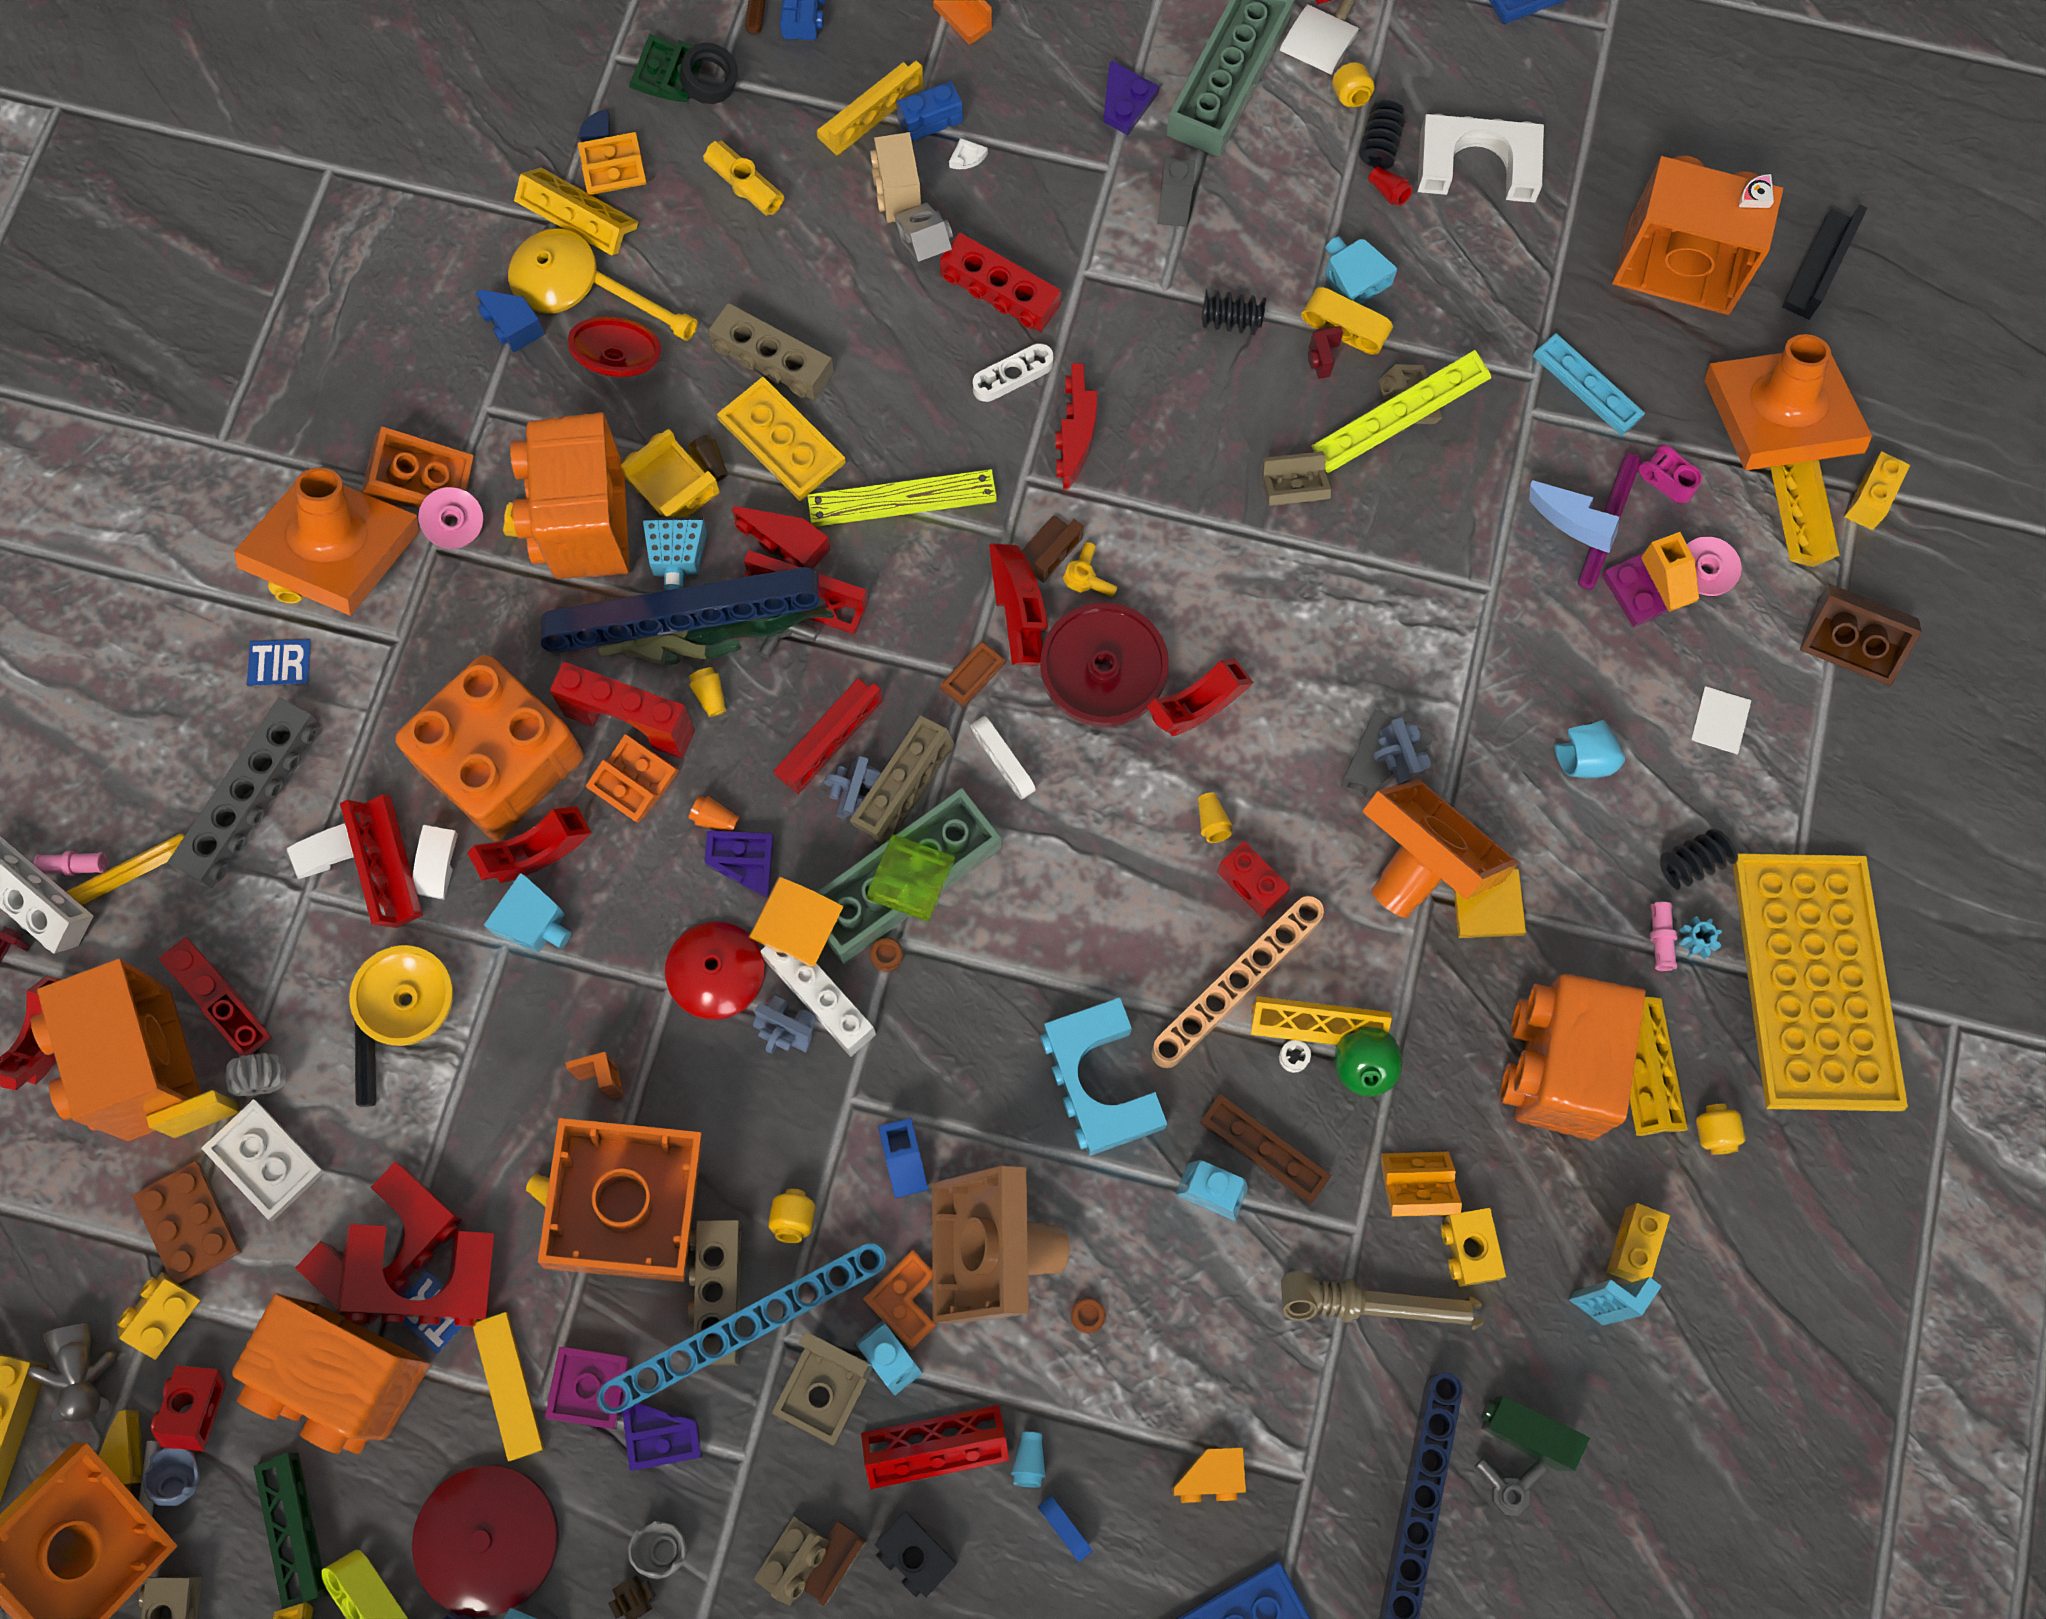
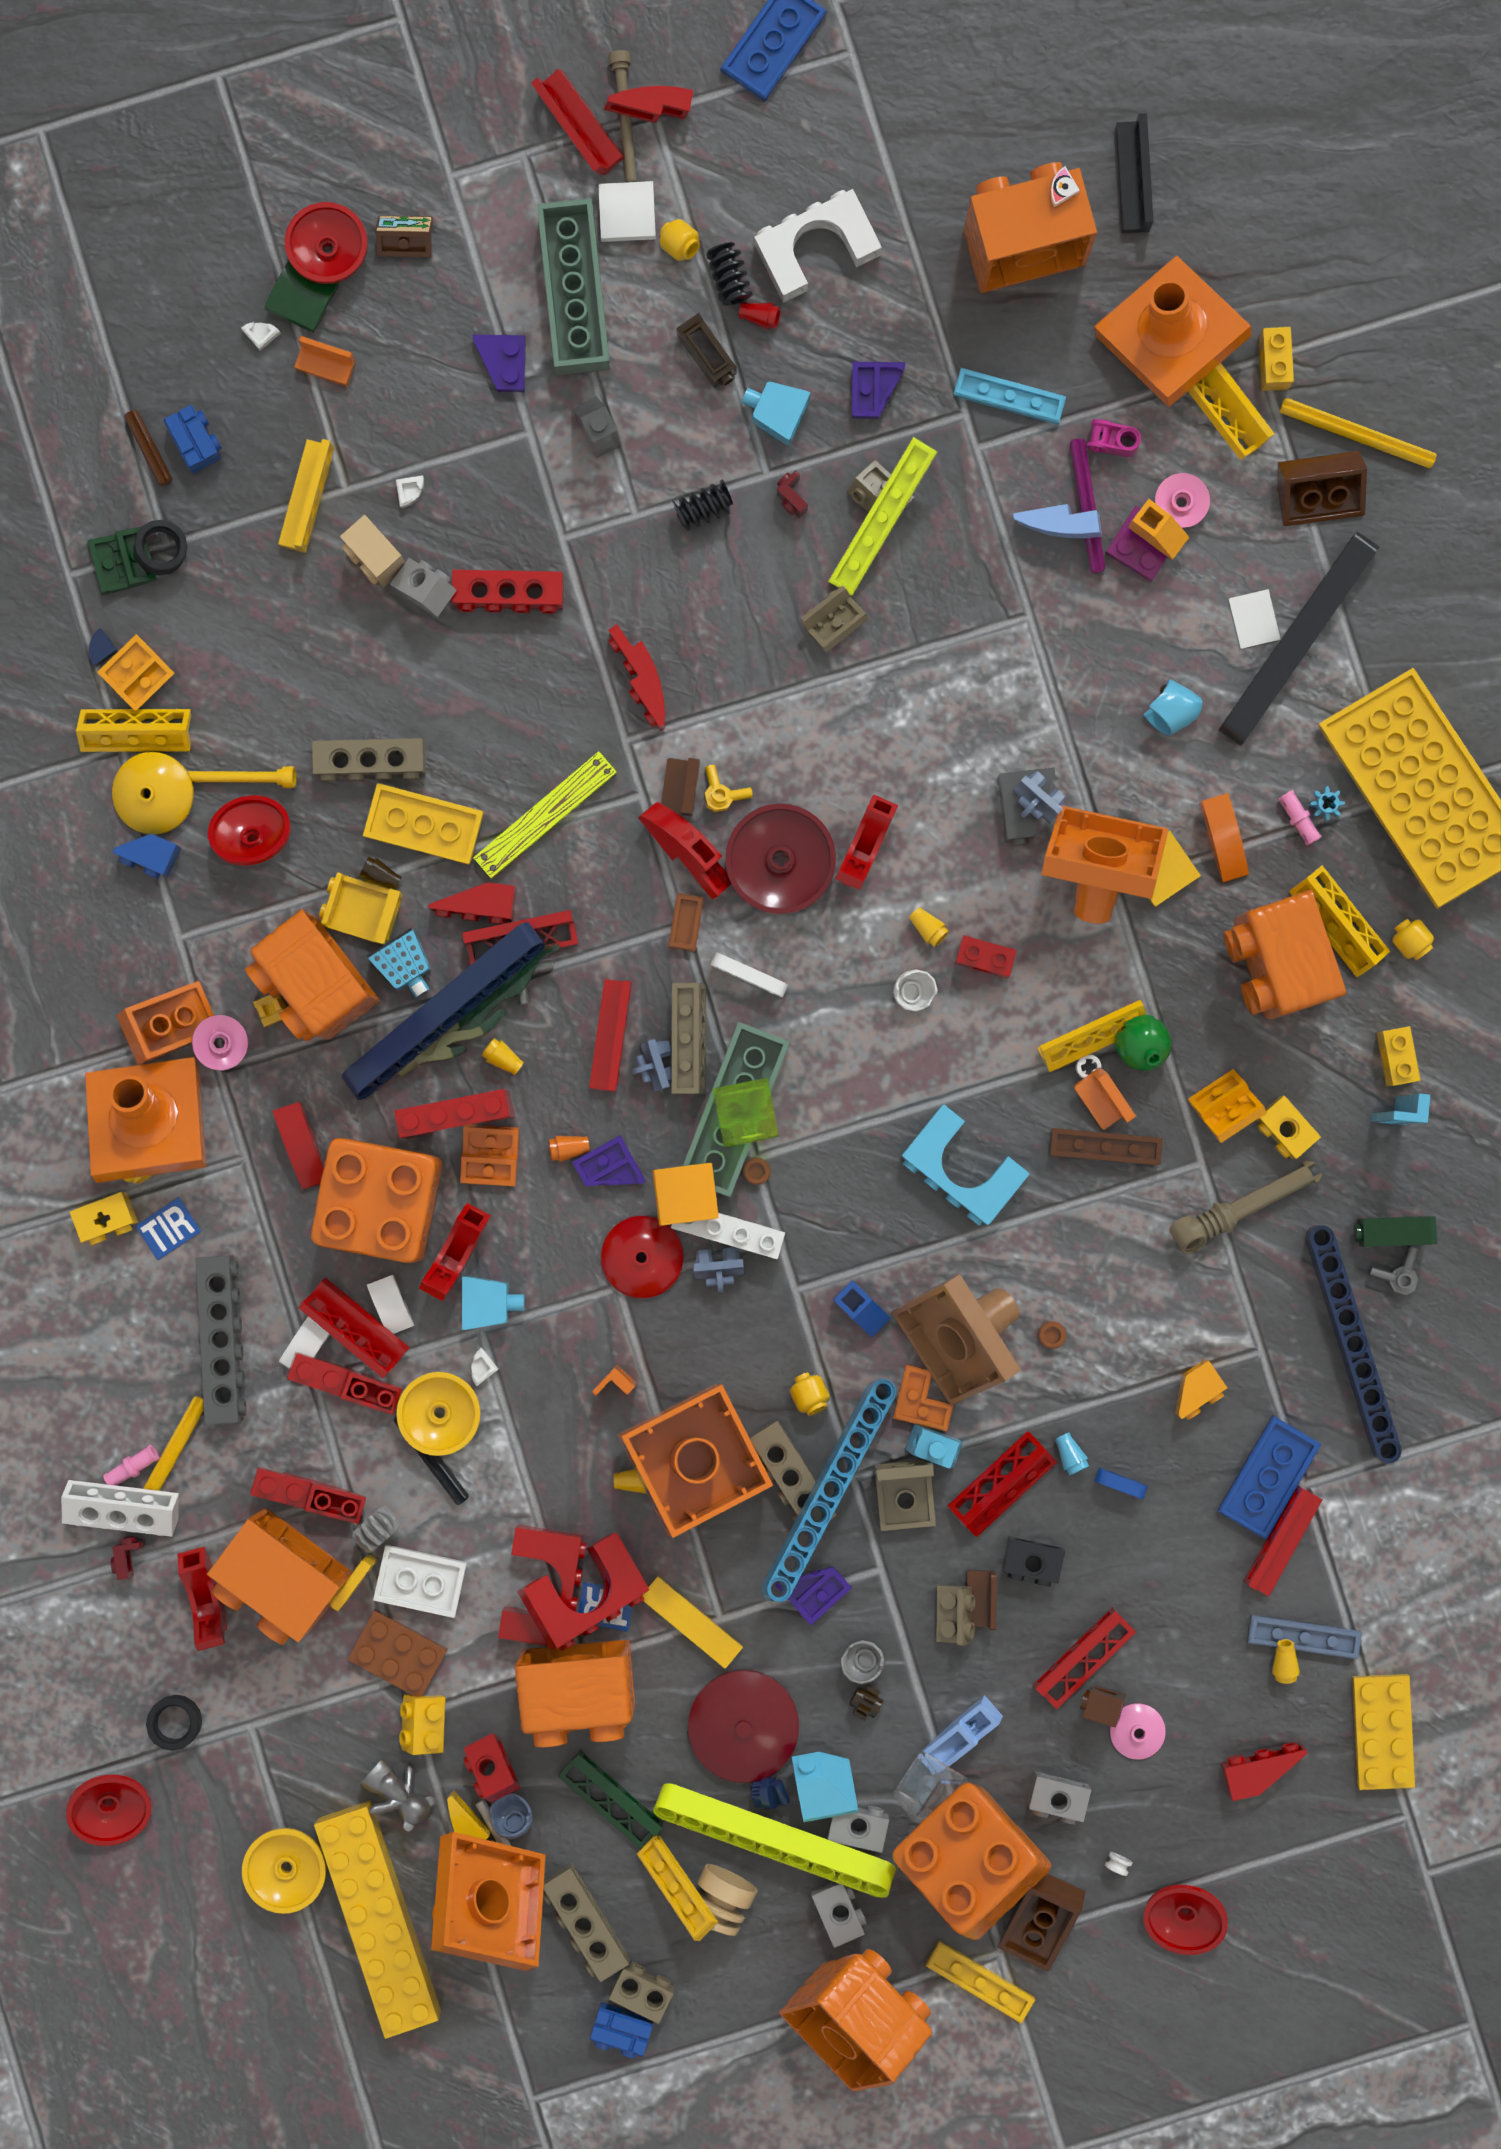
camera: 25 degrees left, 15 degrees up
(224, 612) = (87, 1218): none -> yellow brick
(331, 907) = (344, 1383): none -> red slope
(458, 644) = (300, 1144): none -> red slope
(480, 981) = (482, 1366): none -> white tile
(575, 1387) = (741, 1590): magenta plate -> none
(753, 188) = (232, 619): yellow piece -> none
(930, 111) = (358, 473): blue brick -> none
(1017, 360) = (579, 644): white beam -> none
(1161, 869) = (915, 990): none -> white hair
(1213, 1188) = (1086, 1198): medium azure torso -> none
(1244, 967) = (1026, 1027): light nougat beam -> none
(1291, 1097) = (1103, 1099): none -> orange panel
(1319, 213) = (723, 374): none -> dark brown window
(1360, 325) = (788, 456): yellow beam -> none
(1460, 303) = (873, 387): none -> dark purple wing
(1573, 908) = (1224, 837): none -> orange slope
(1697, 855) = (1292, 743): black piece -> none
(1757, 761) = (1298, 638): none -> black beam
(1925, 606) = (1358, 433): none -> yellow axle

